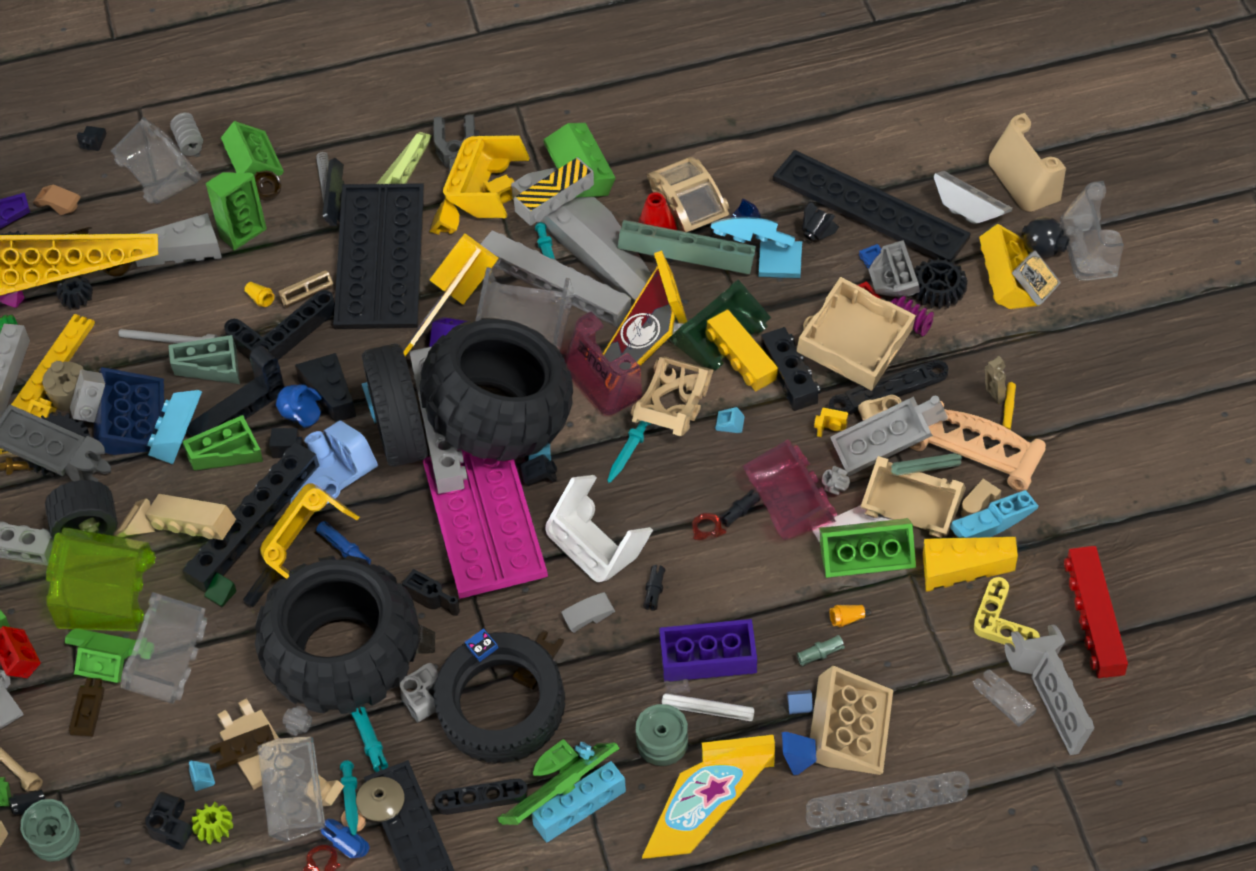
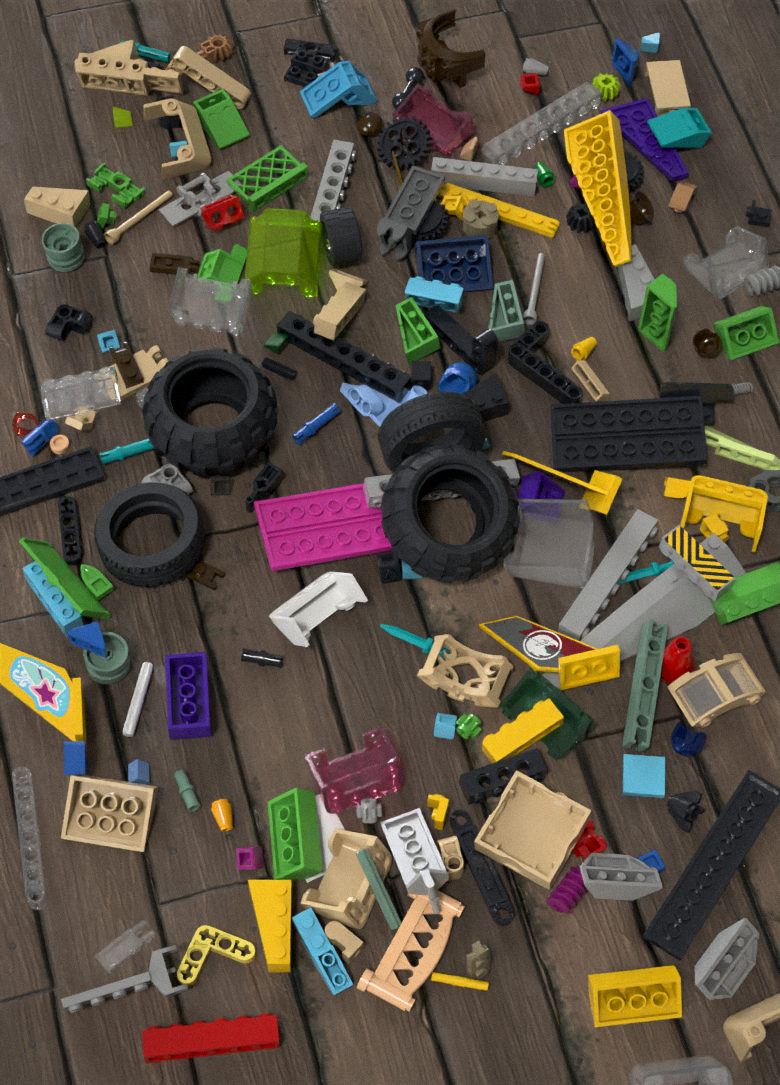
camera: 85 degrees right, 5 degrees up
(87, 396) = (460, 228): light grey brick -> none
(218, 816) = (63, 350): lime gear -> none
(308, 500) = (340, 388): yellow windscreen -> none
(350, 785) = (87, 437): teal sword -> none
(383, 807) = (69, 463): dark tan dish -> none
(481, 645) = (184, 509): tile -> none
(584, 750) = (96, 598): medium azure axle -> none
(588, 610) = (239, 606): light grey slope -> none
(599, 379) = (518, 595): clear pink windscreen -> none
(651, 734) = (89, 638): none -> blue slope
(718, 531) = (319, 697): clear red piece -> none
(734, 395) = (468, 726): none -> bright green gear
(739, 508) = (344, 729): black pin -> none
(744, 227) = (666, 735): medium azure slope -> none
(893, 588) = (249, 857): none -> magenta slope
(939, 276) = (605, 908): black gear -> none
(1036, 278) = (617, 1016): tile -> none
(1045, 237) = (676, 1033): black brick -> none

